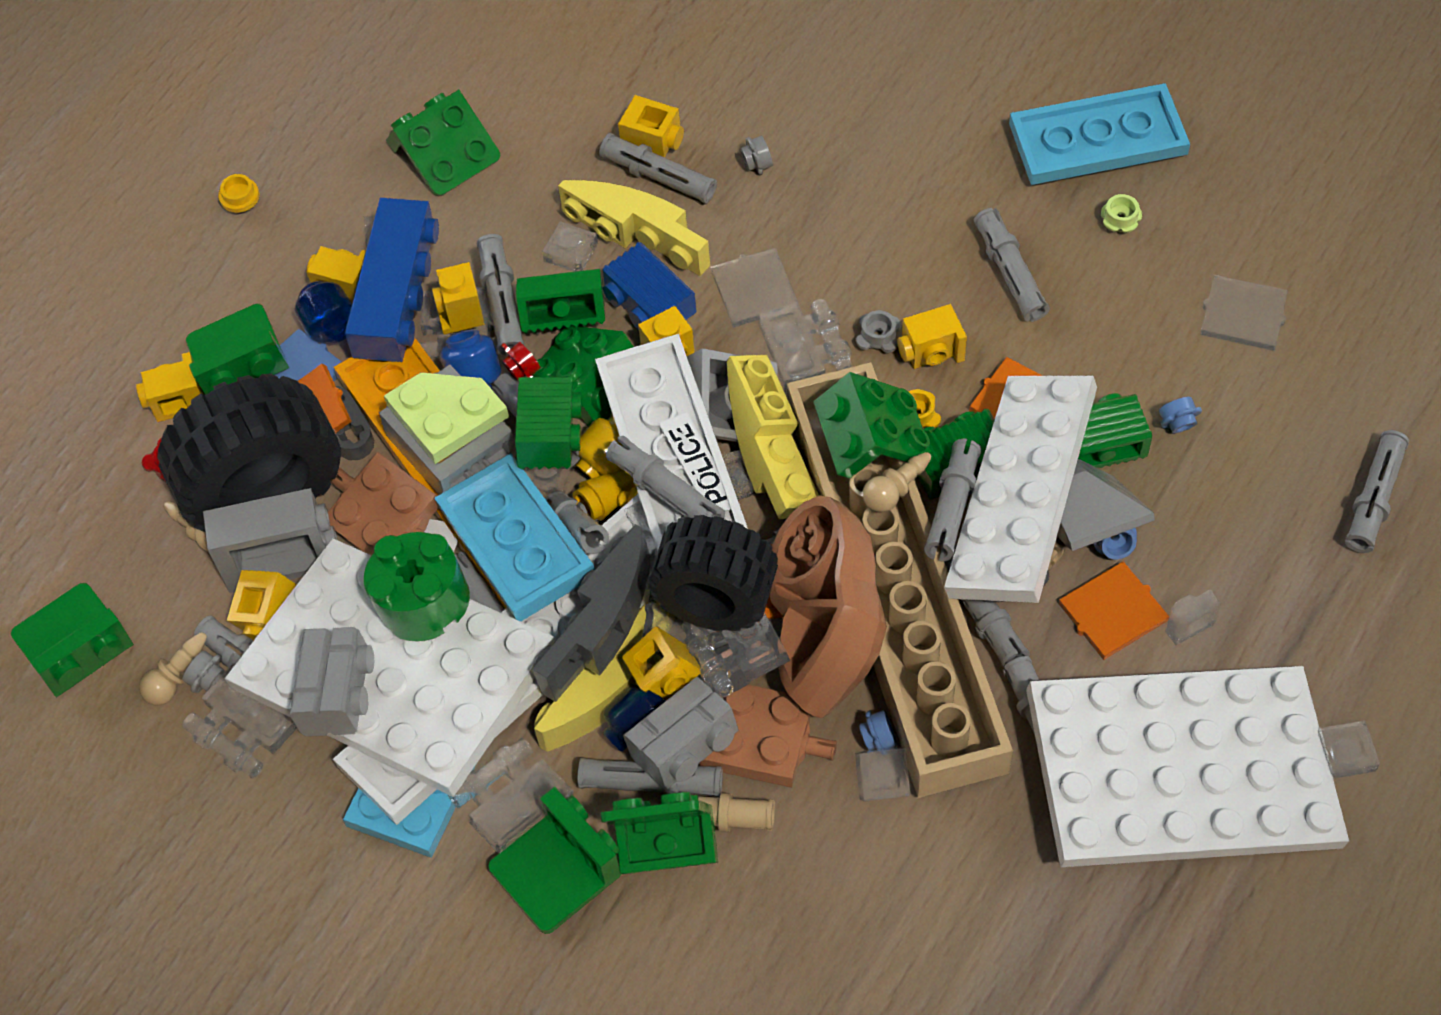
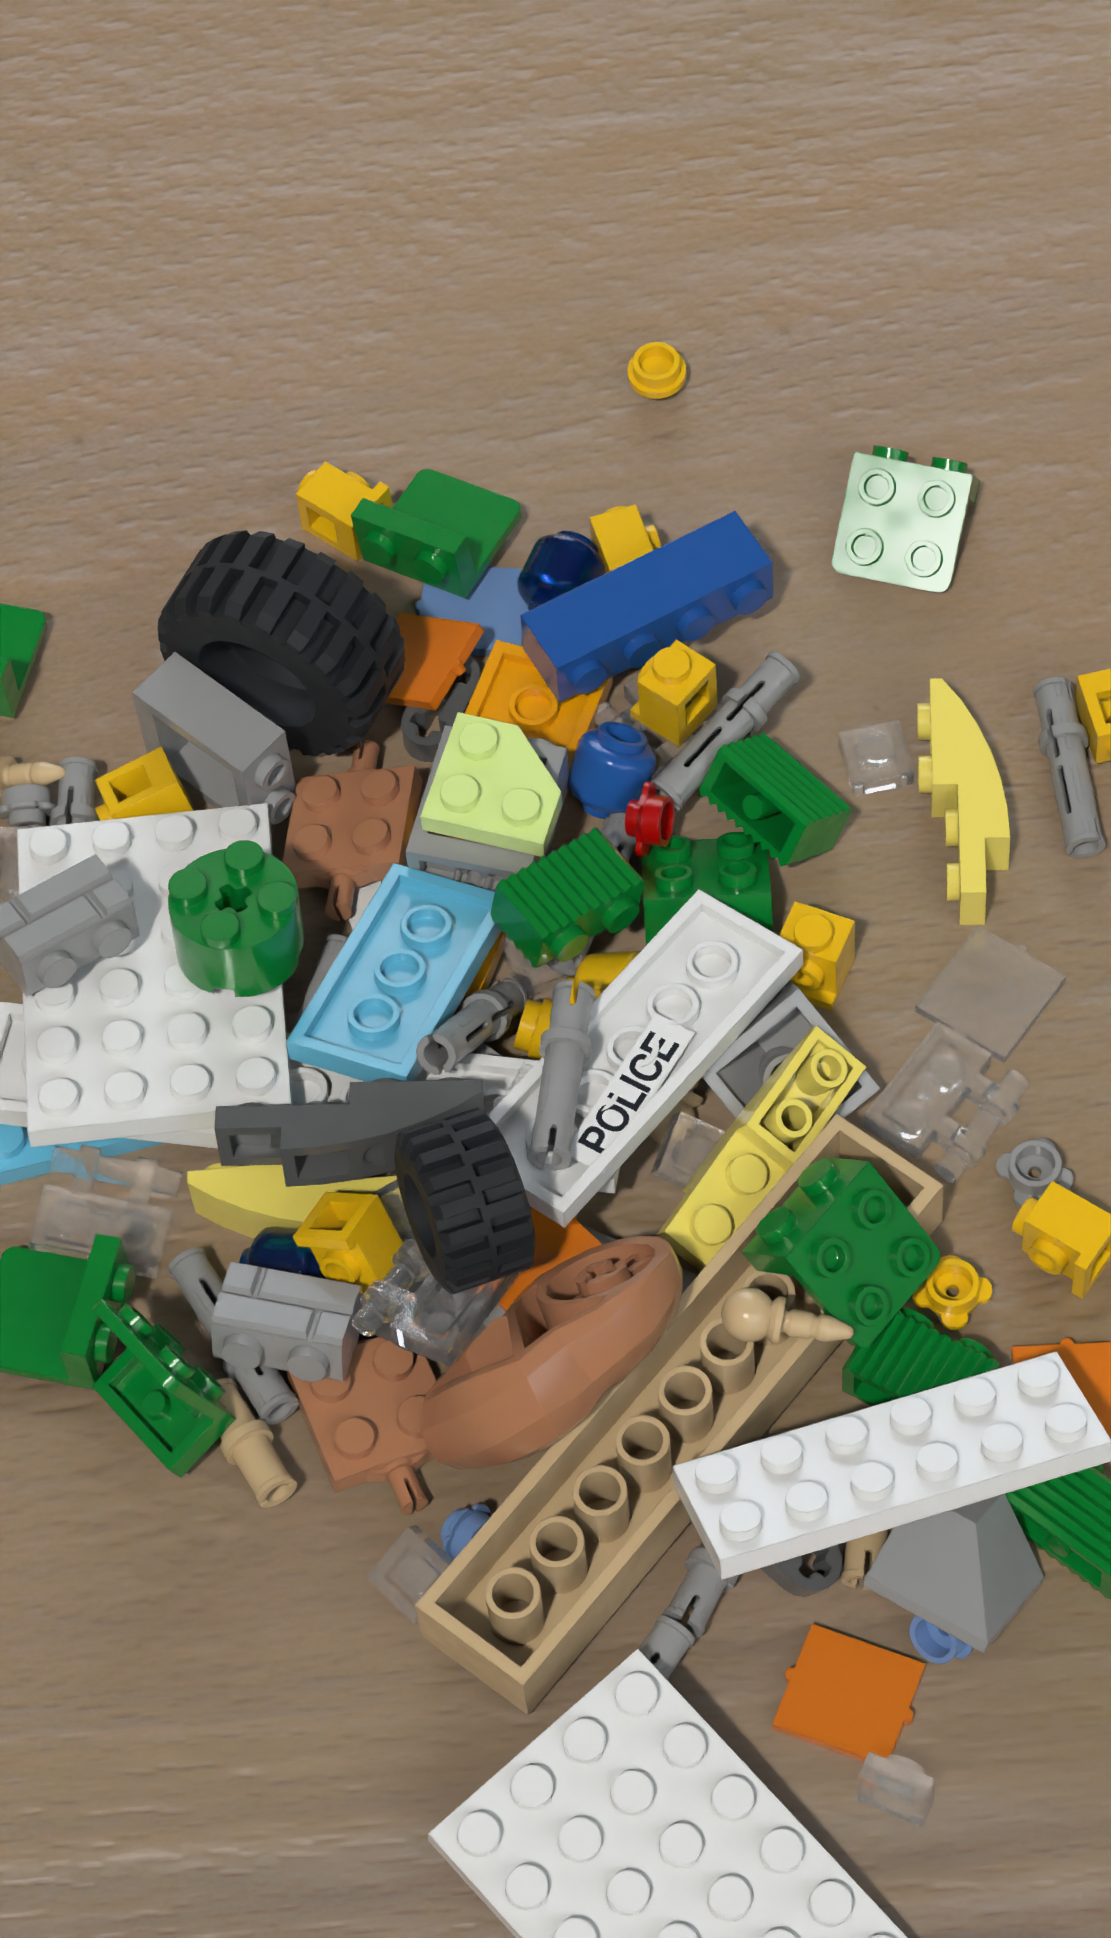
camera: 55 degrees right, 0 degrees up
(645, 286) = (875, 878): blue brick -> none
(956, 485) = (835, 1394): light grey pin -> none

